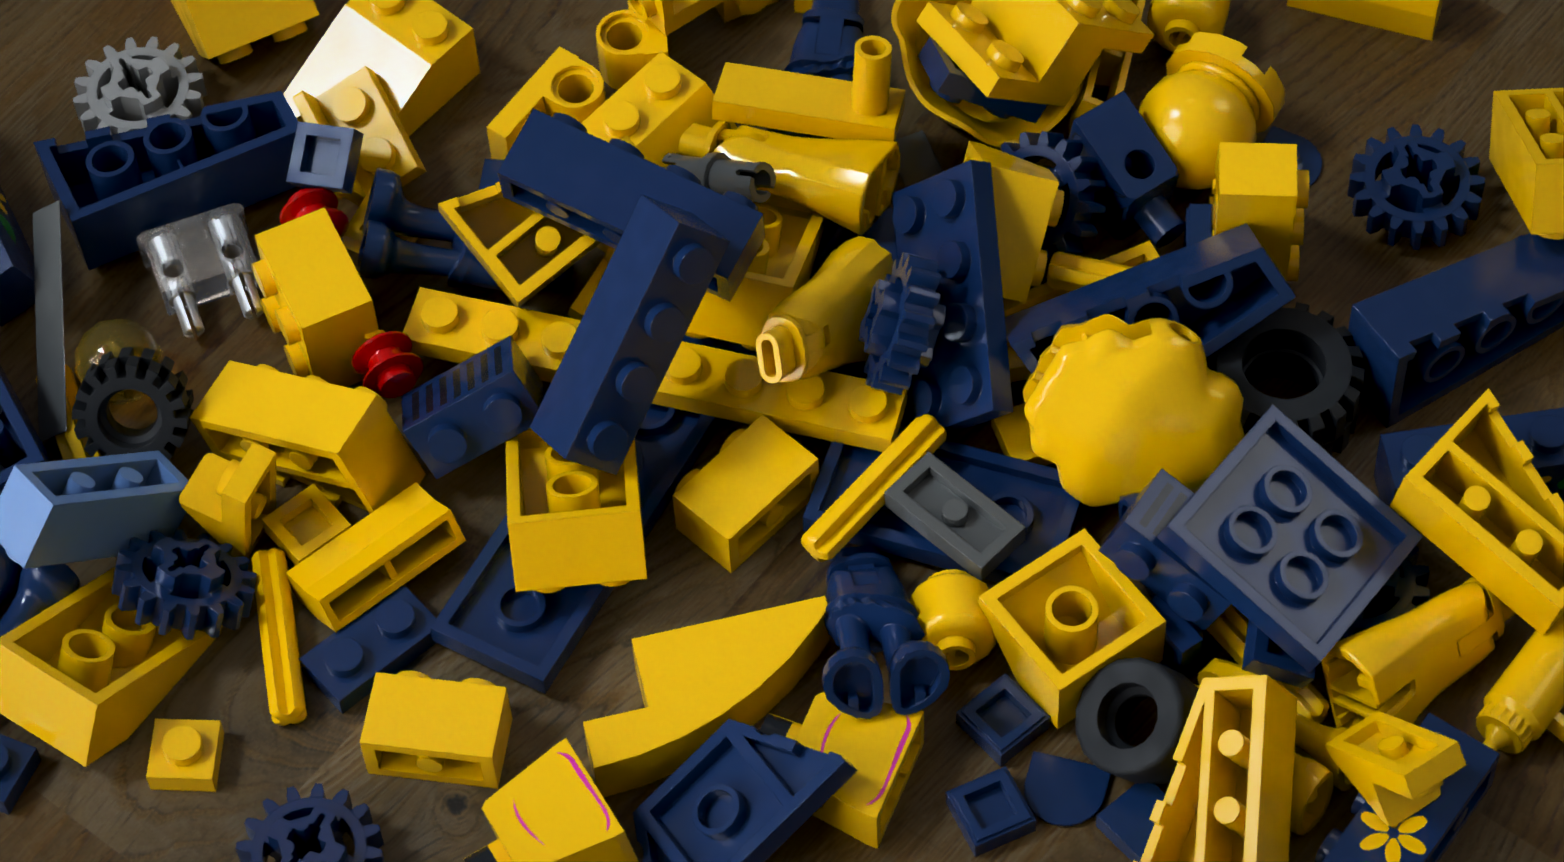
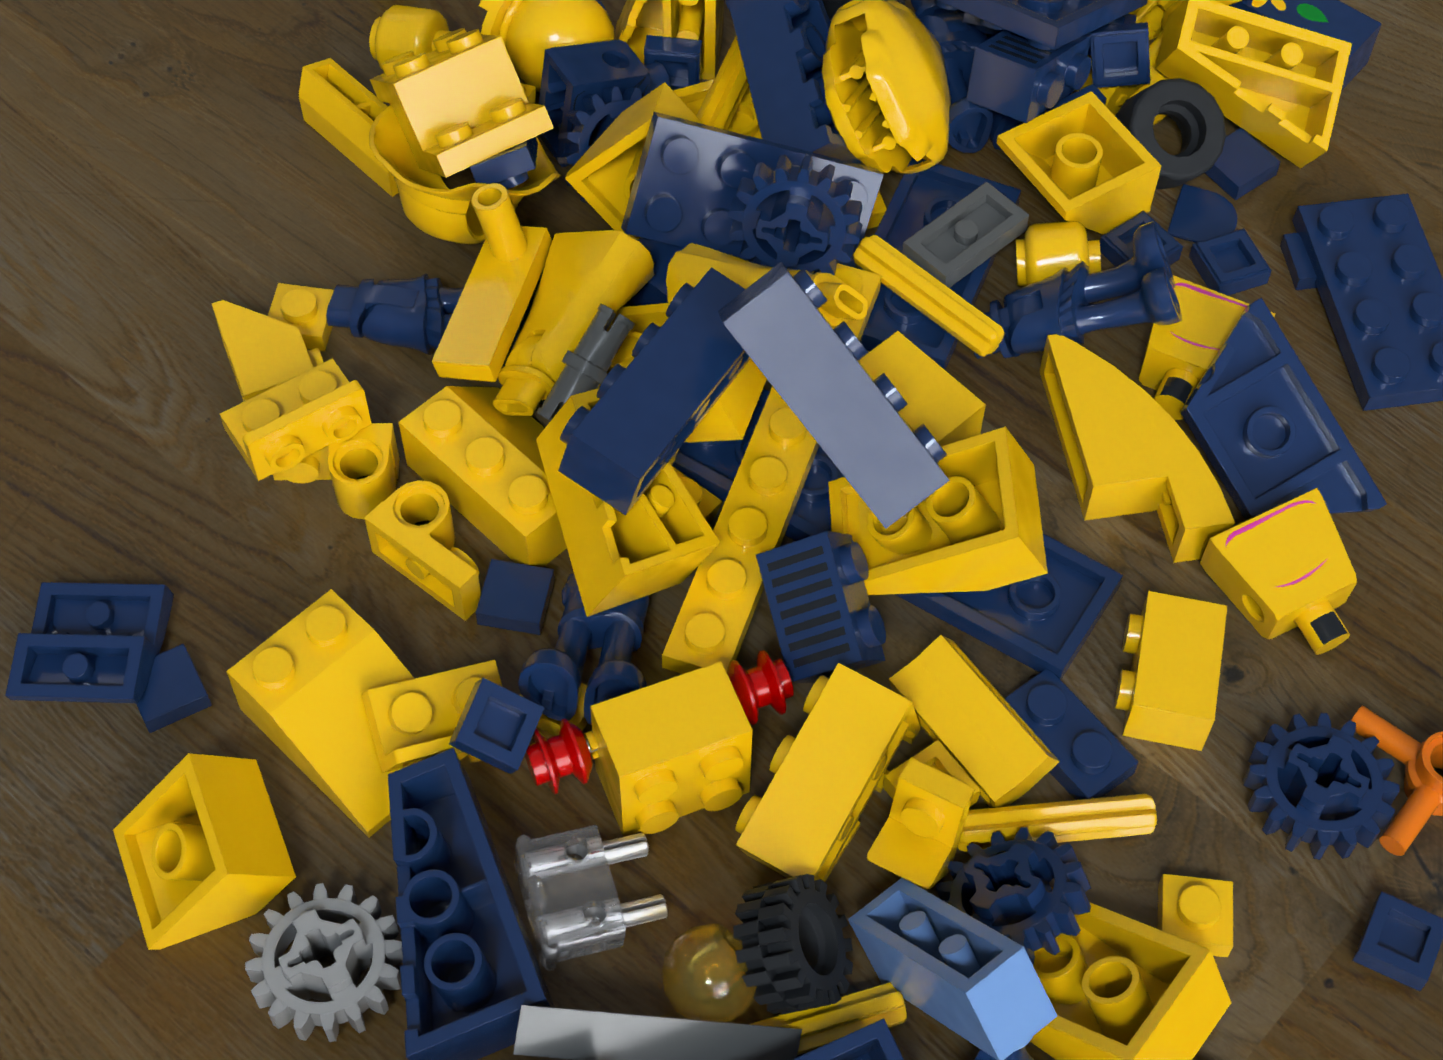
camera: 90 degrees left, 0 degrees up
(1232, 647) = (1120, 55): none -> dark blue tile

